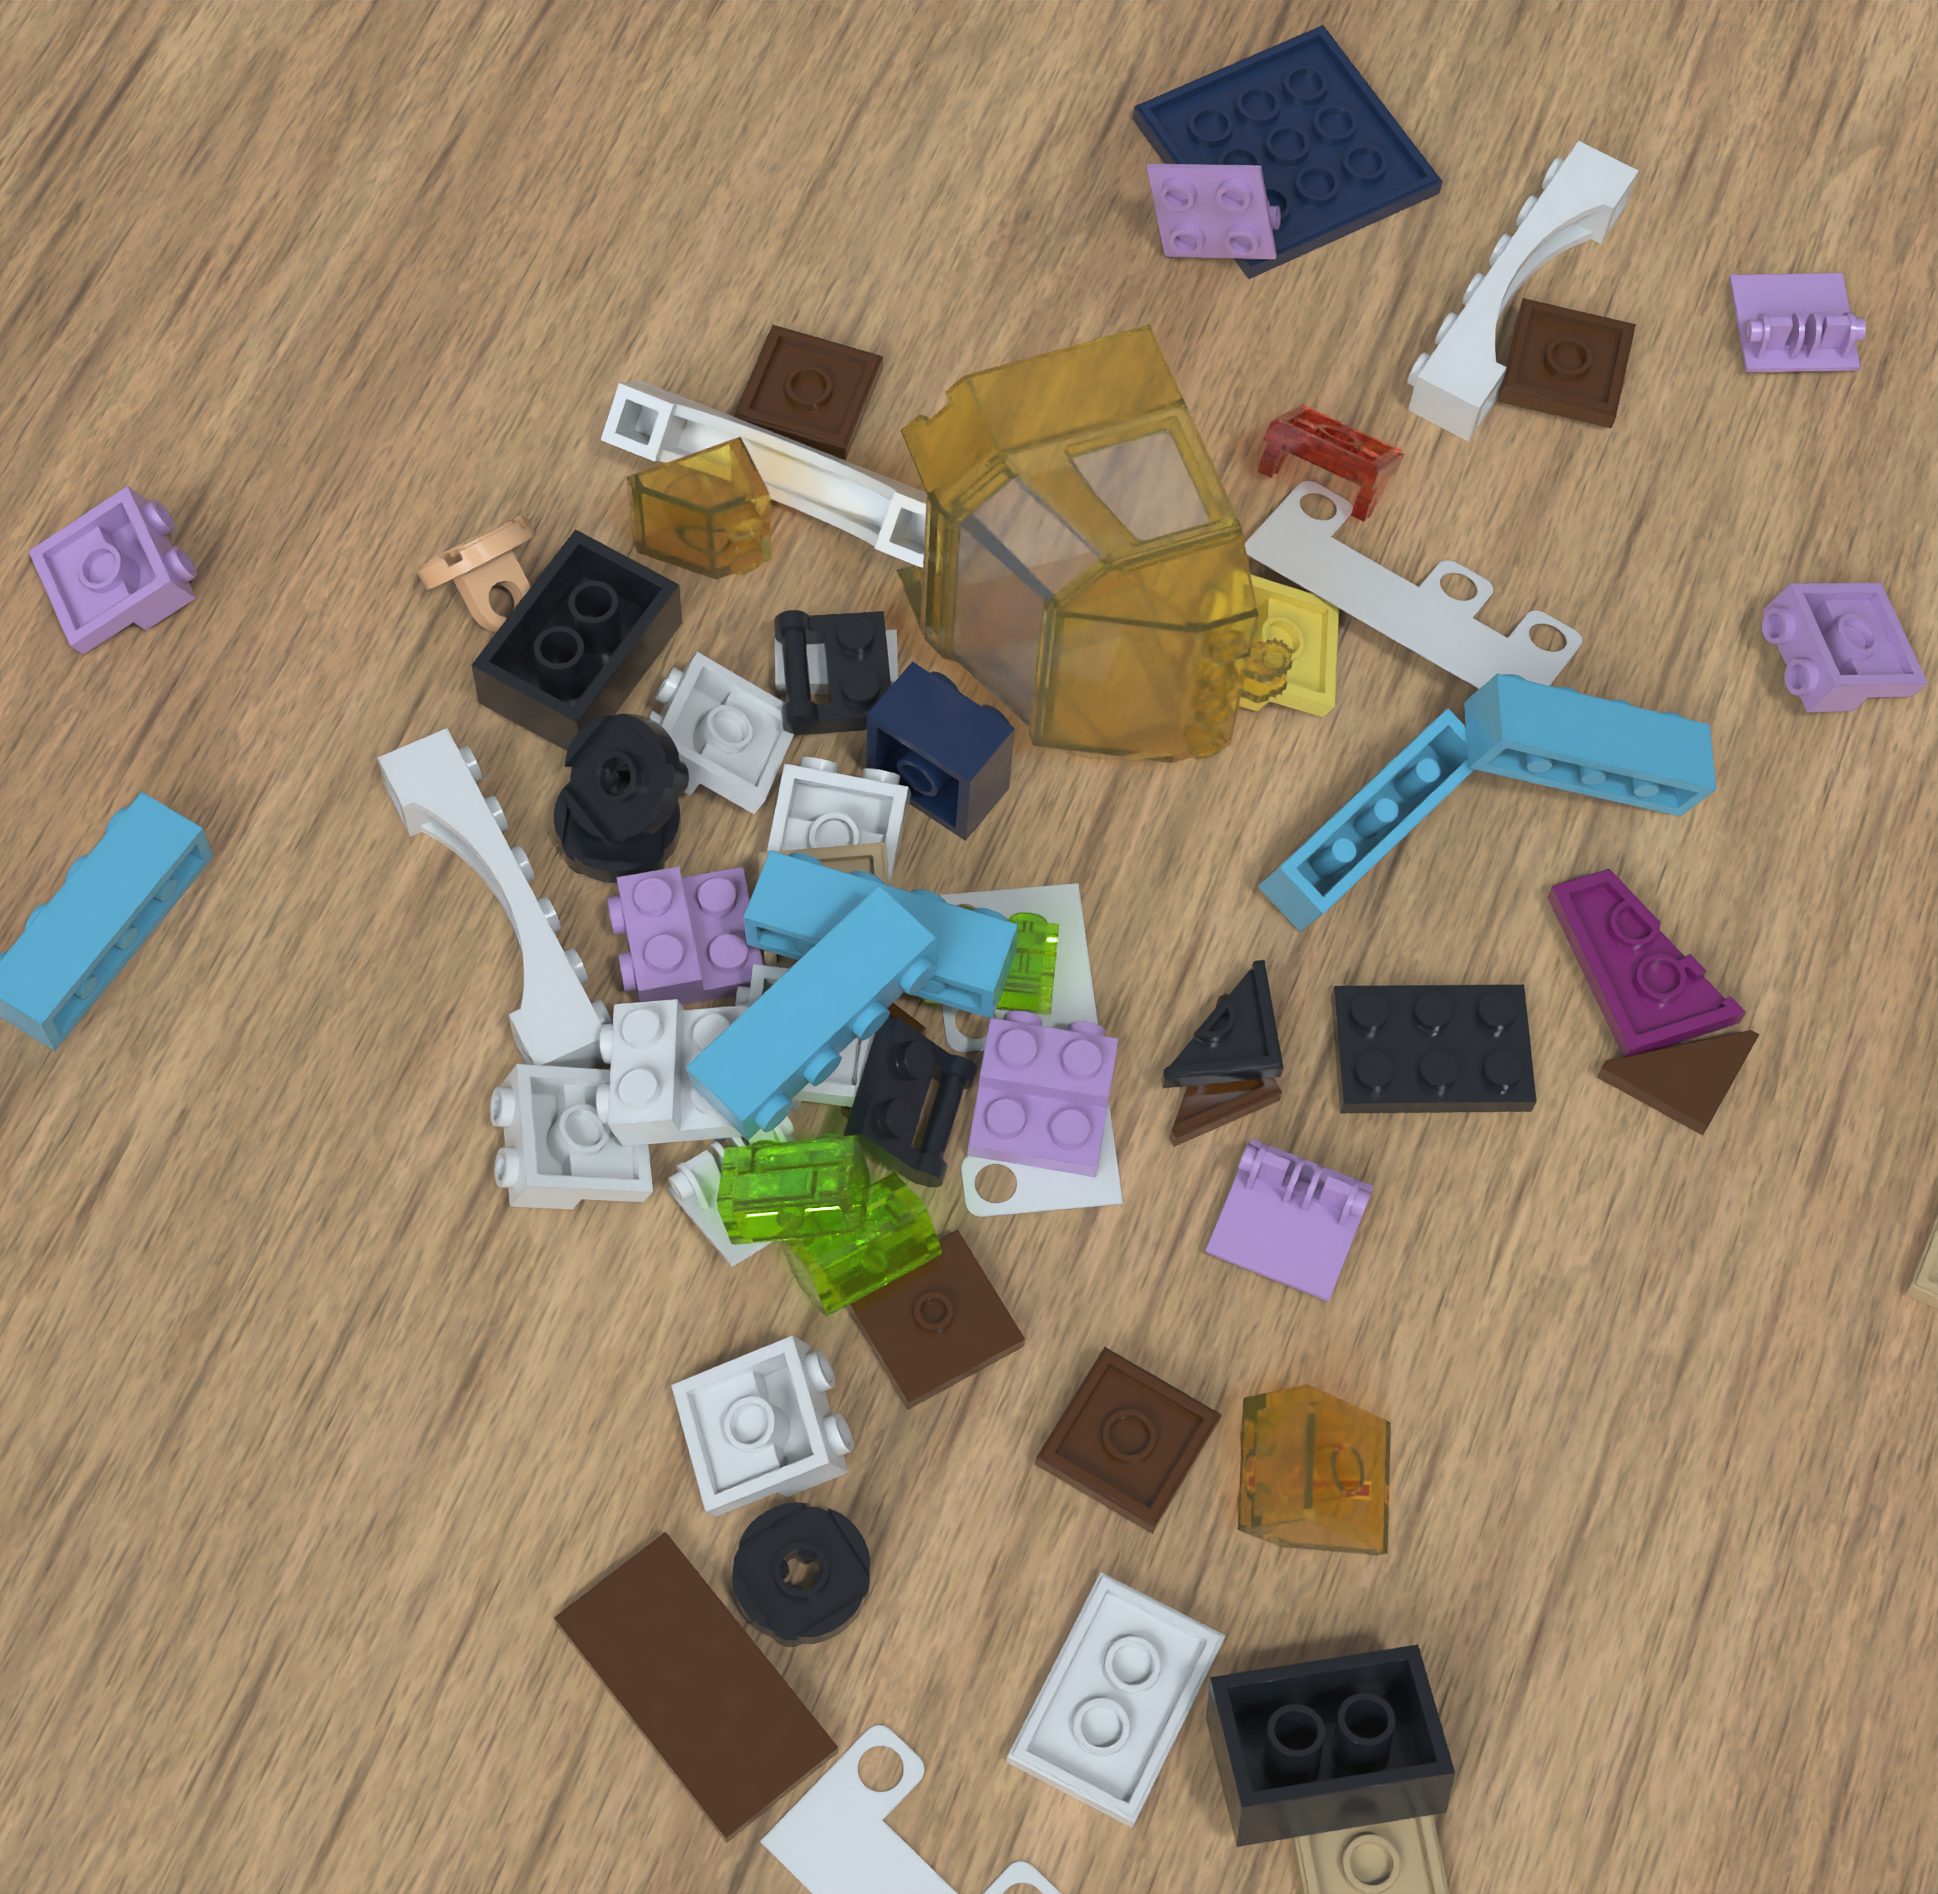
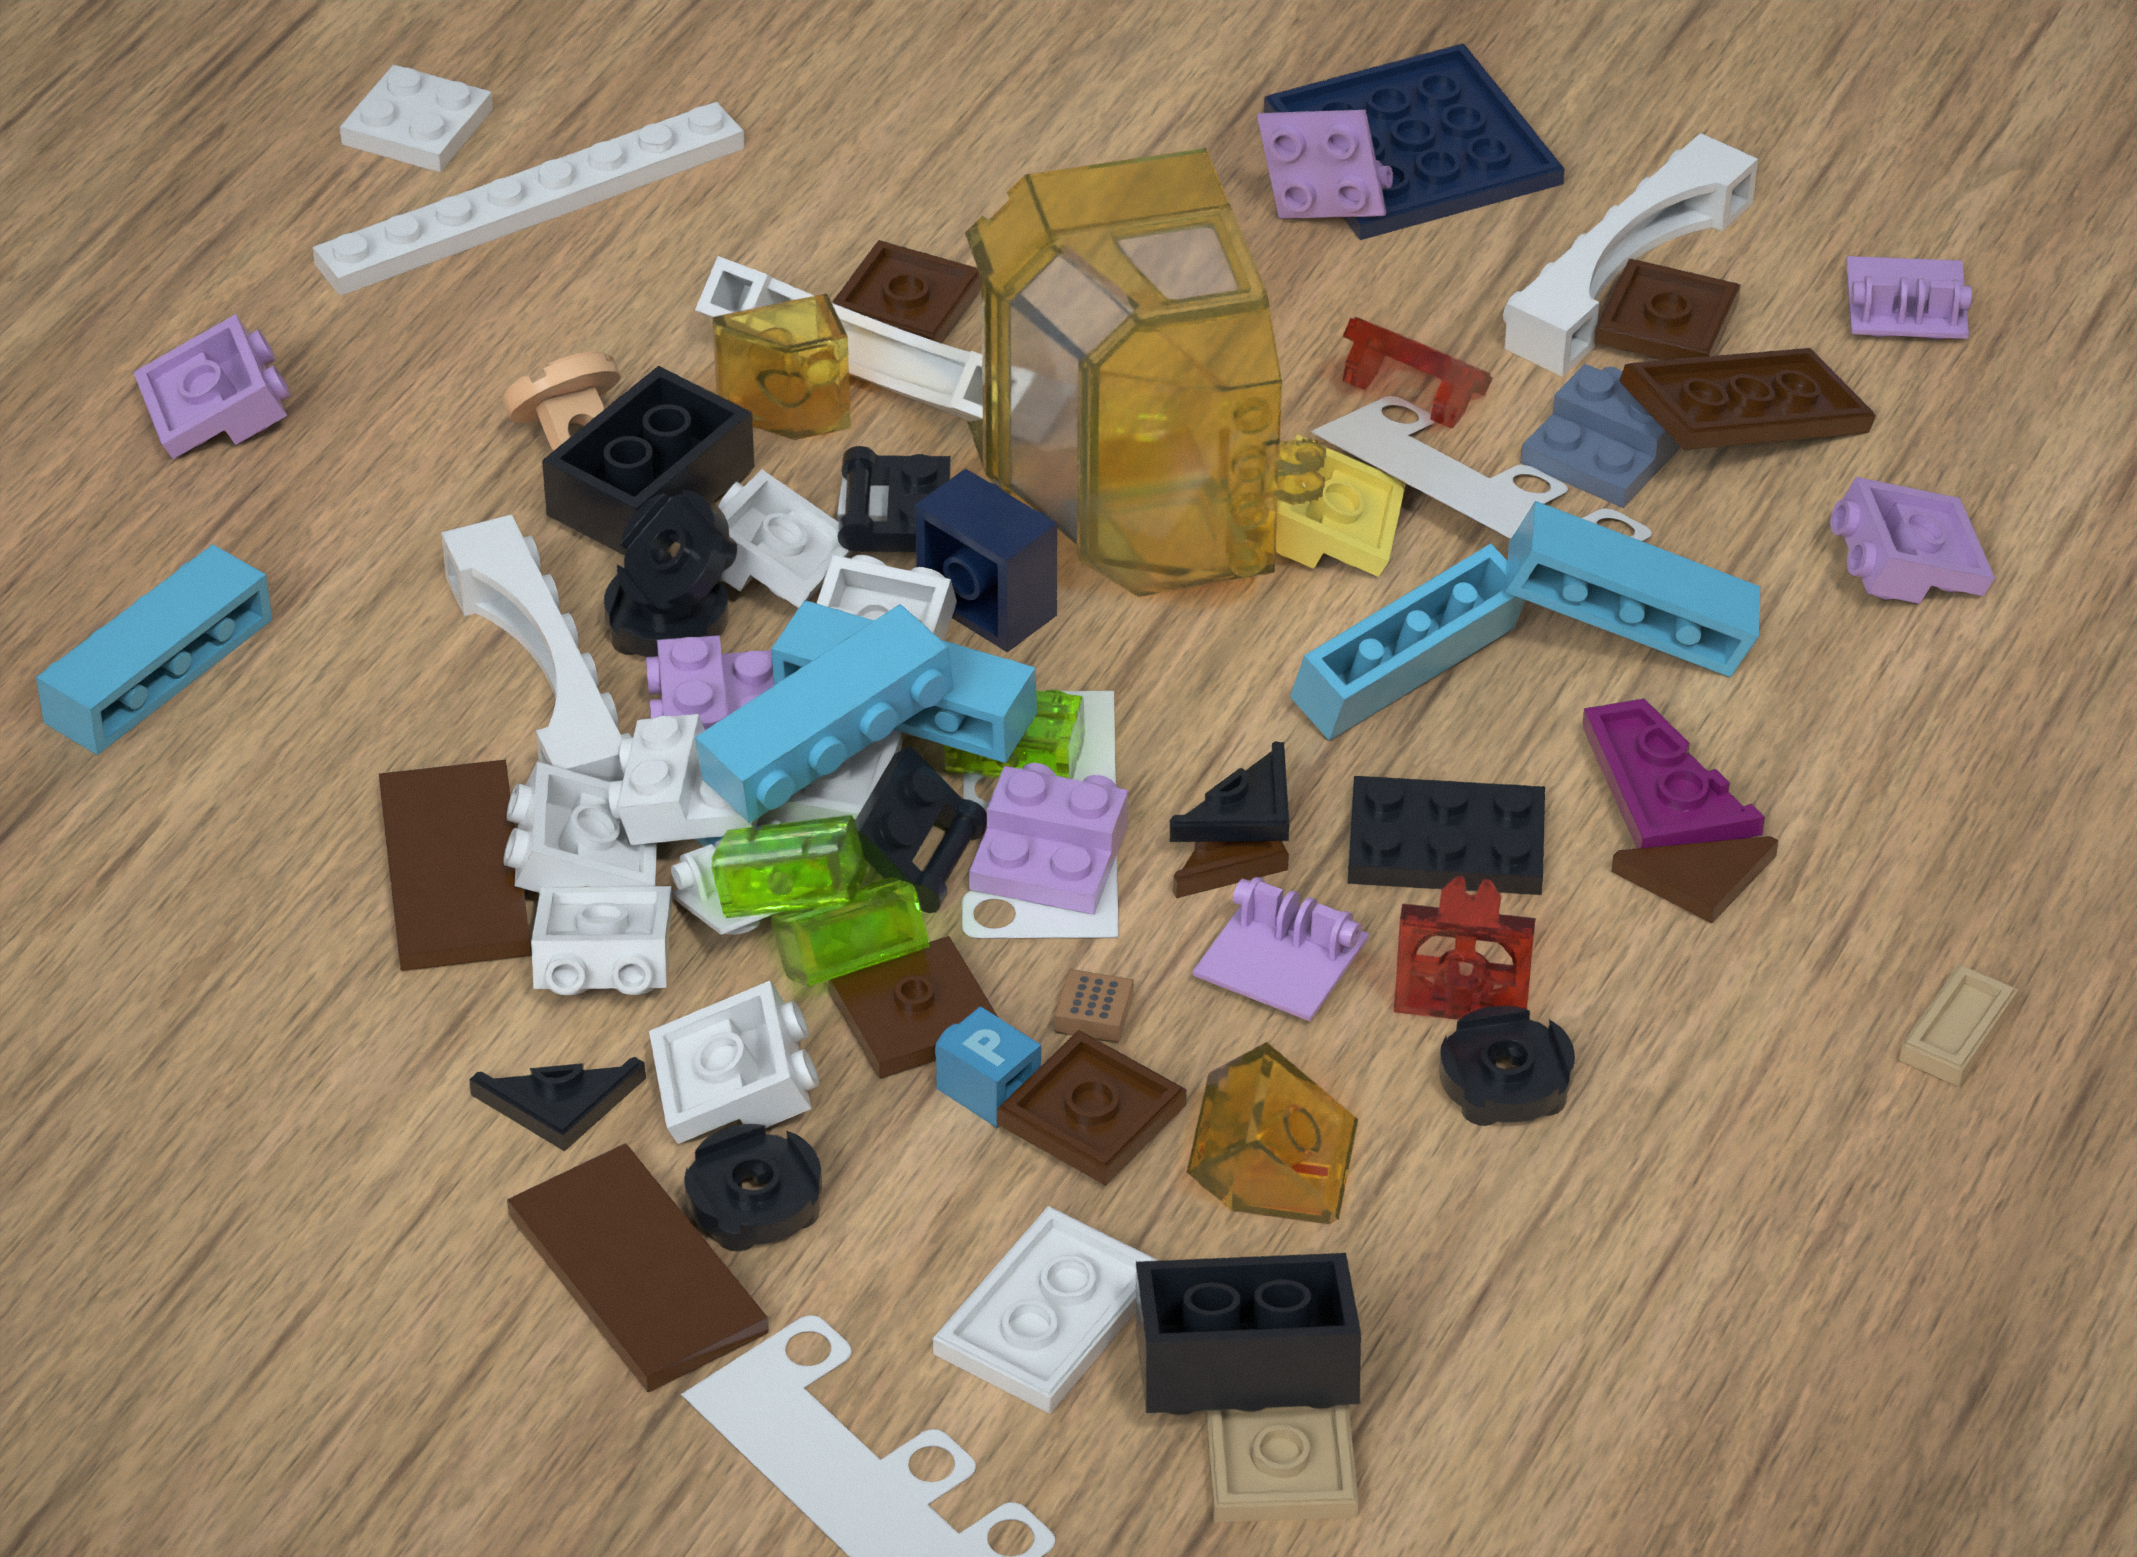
camera: 10 degrees right, 20 degrees down
(278, 186) = (416, 118): none -> white plate
(405, 285) = (527, 198): none -> white plate
(436, 1174) = (448, 865): none -> reddish brown tile
(588, 1471) = (561, 1099): none -> black tile
(608, 1268) = (602, 939): none -> white plate
(1017, 1399) = (984, 1062): none -> dark azure brick
(1112, 1301) = (1094, 1005): none -> medium nougat tile
(1477, 1234) = (1466, 920): none -> clear red piece
(1514, 1380) = (1501, 1094): none -> black plate
(1526, 523) = (1599, 438): none -> sand blue plate
(1662, 477) = (1747, 398): none -> reddish brown tile

